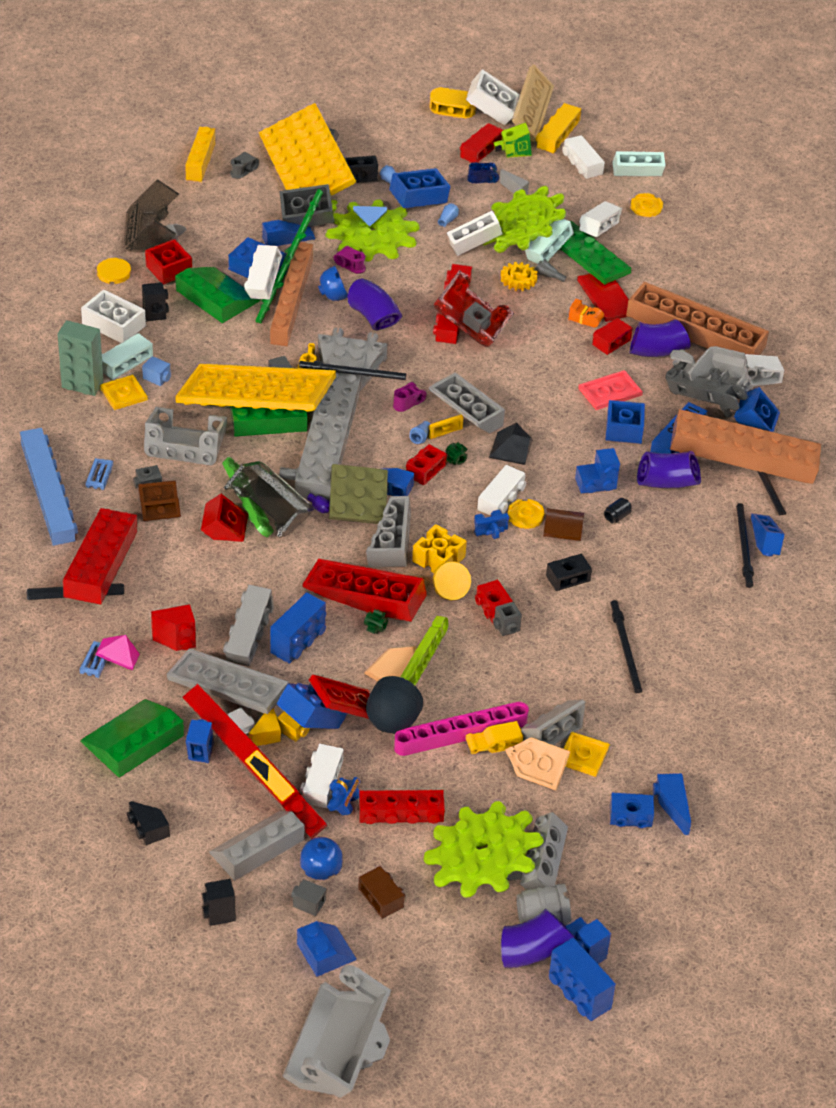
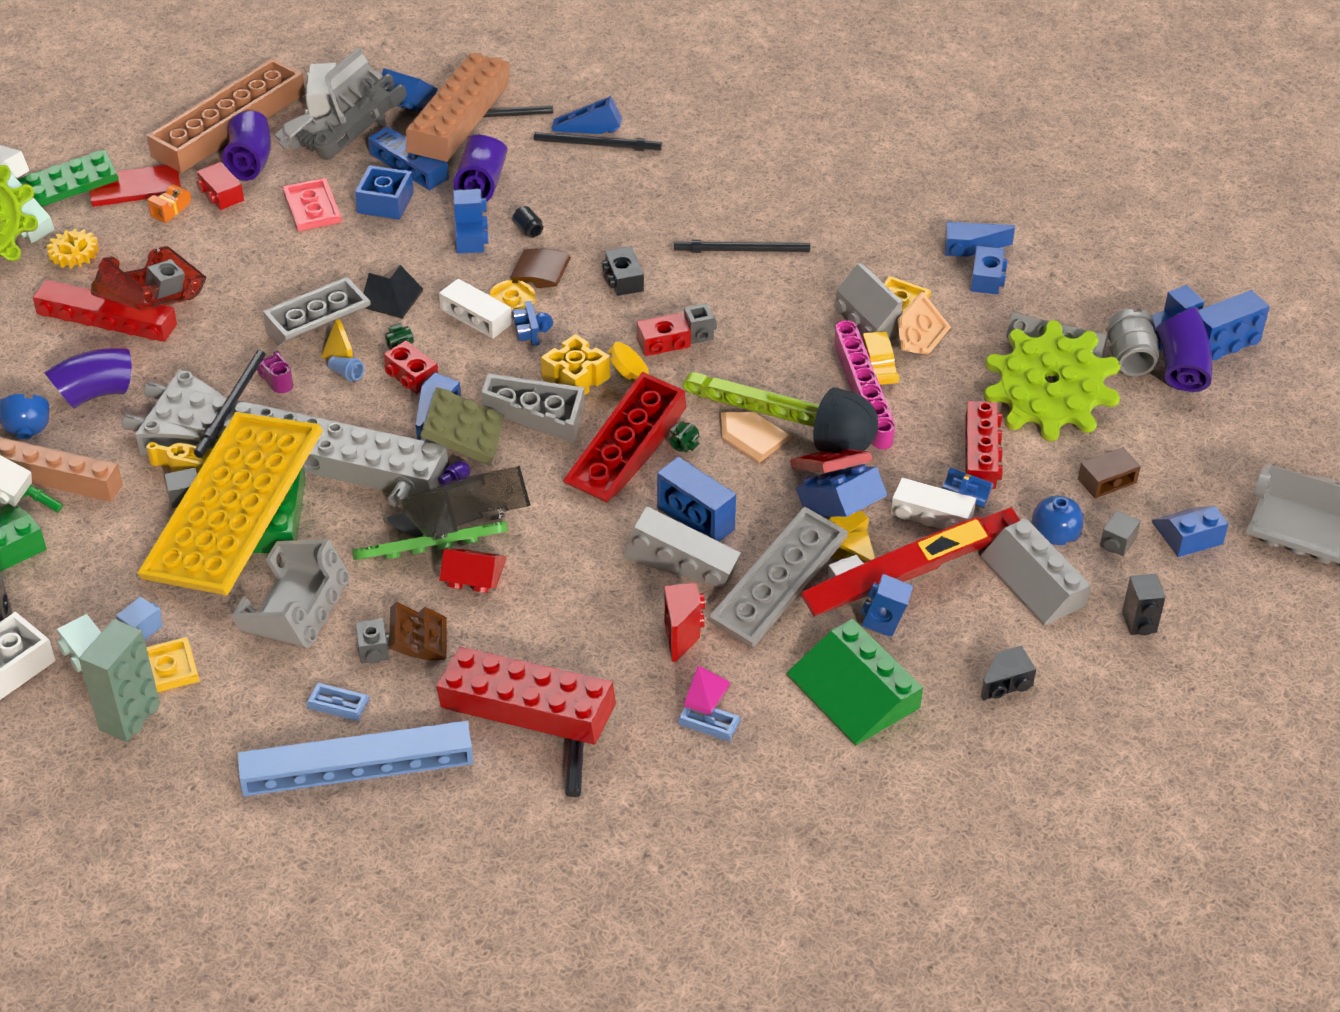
camera: 80 degrees left, 0 degrees up
(546, 269) = (70, 222): dark grey cone -> none

